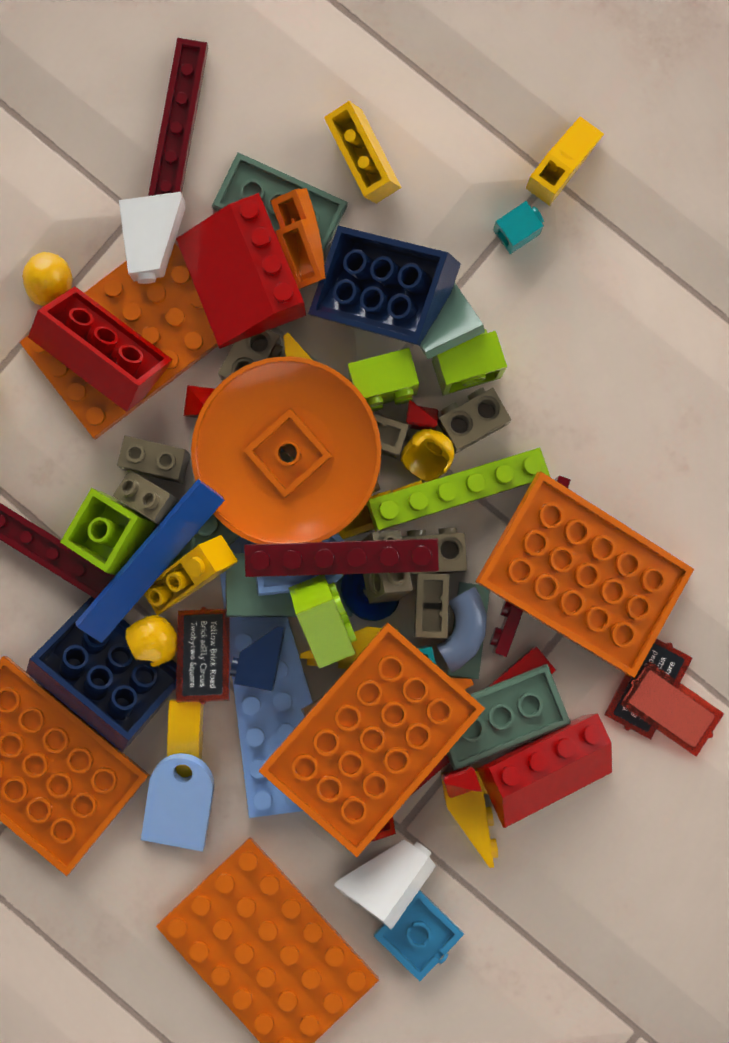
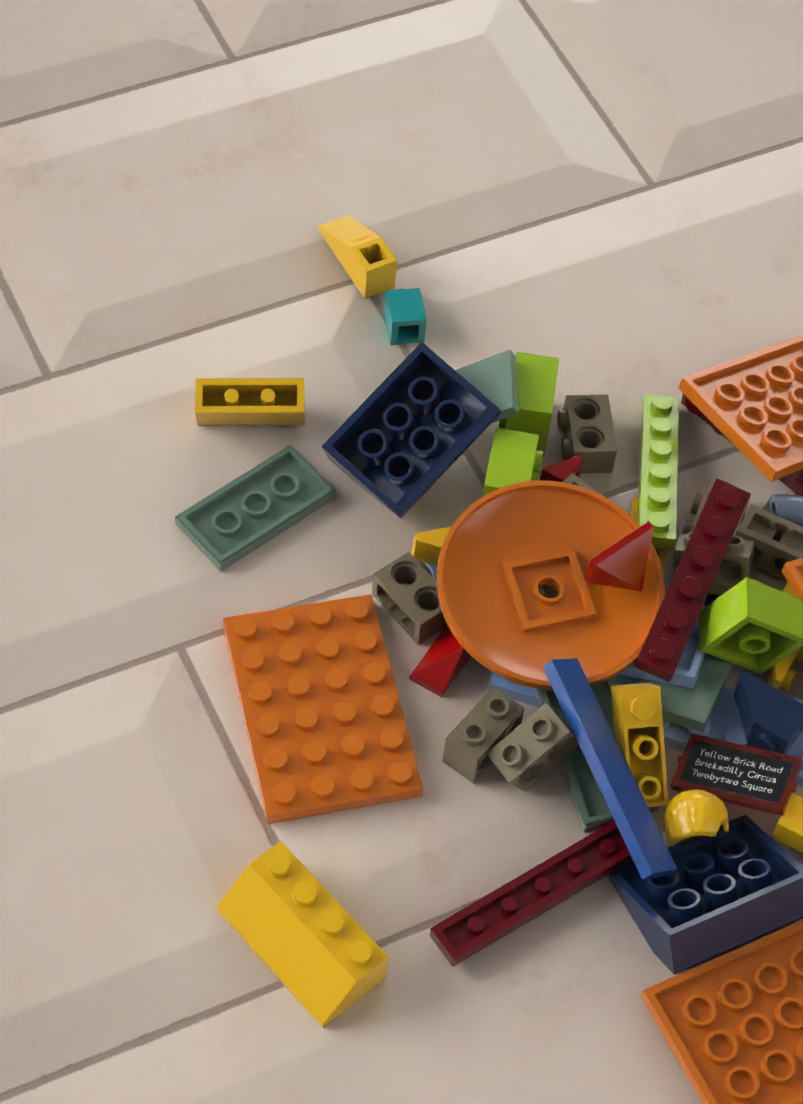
camera: 70 degrees left, 30 degrees down
(46, 277) = (210, 755): yellow hair -> none
(99, 347) = (331, 723): red slope -> none
(106, 531) = (550, 805): lime brick -> none
(150, 233) = (227, 619): white slope -> none
(178, 117) = (115, 560): dark red plate -> none
(241, 272) = (320, 552): red slope -> none
(300, 236) = (314, 487): orange slope -> none
(322, 501) = (624, 562): none -> red slope
(428, 454) = (610, 476): yellow hair -> none

